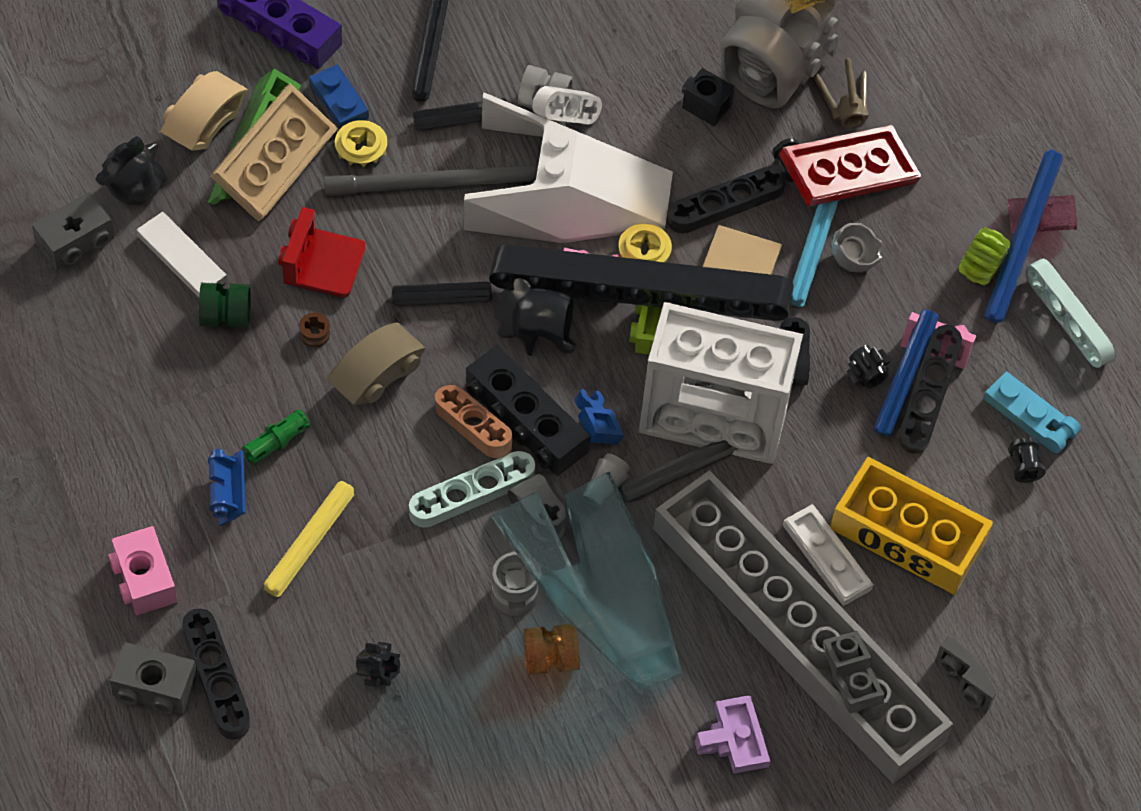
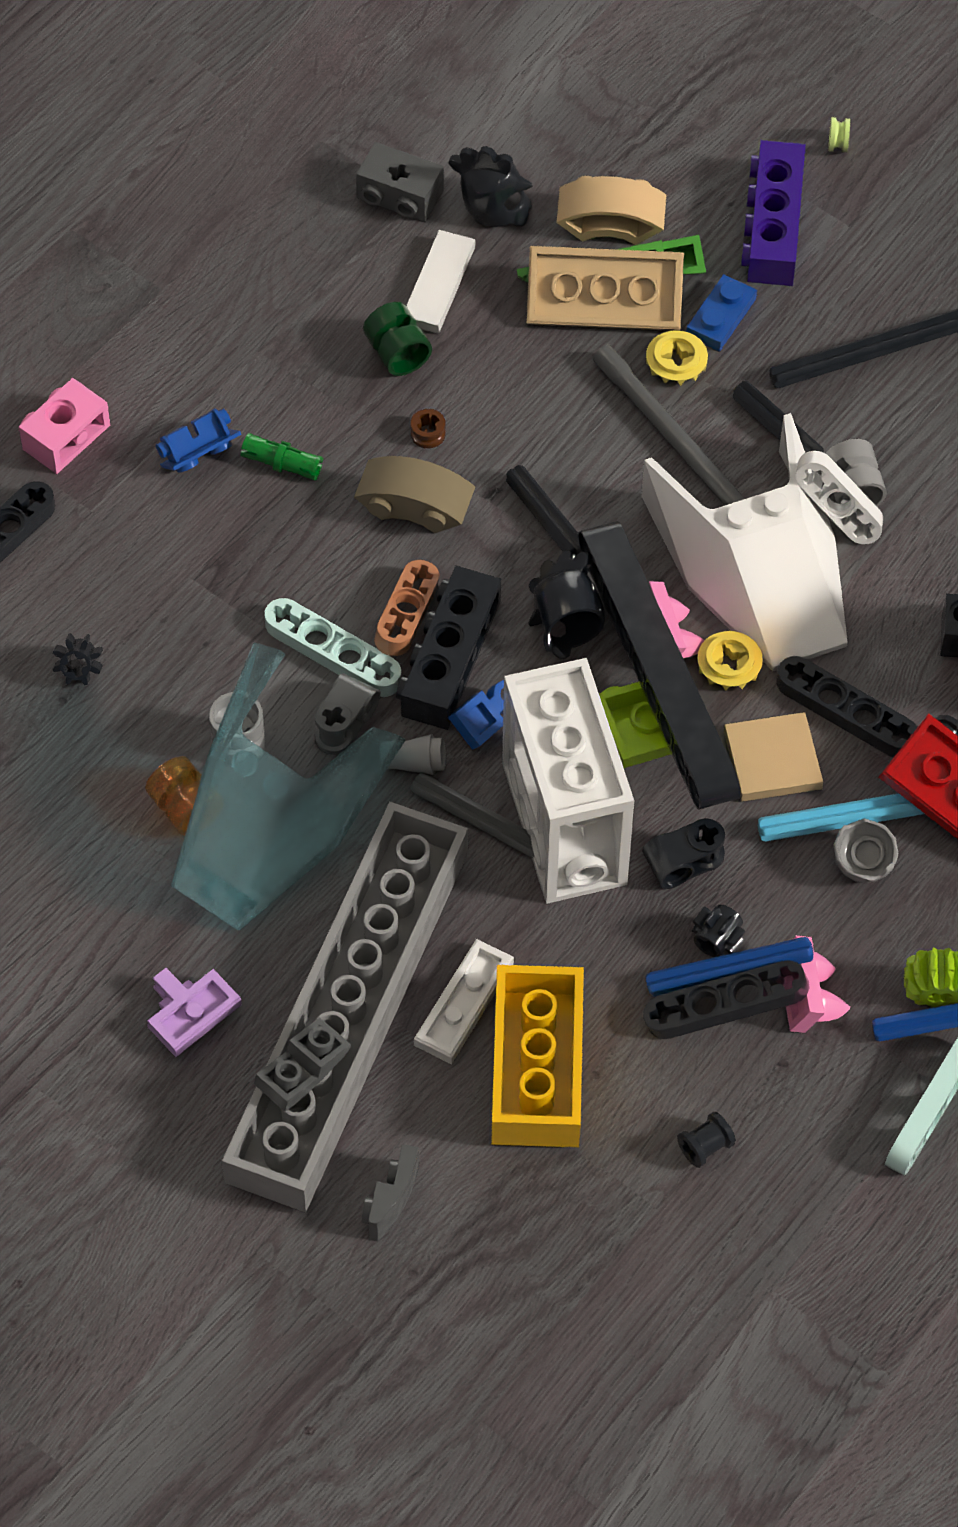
camera: 65 degrees right, 0 degrees up
(308, 539) = (188, 540): light yellow axle -> none
(320, 258) = (510, 386): red bracket -> none
(1031, 412) = (777, 1120): medium azure plate -> none

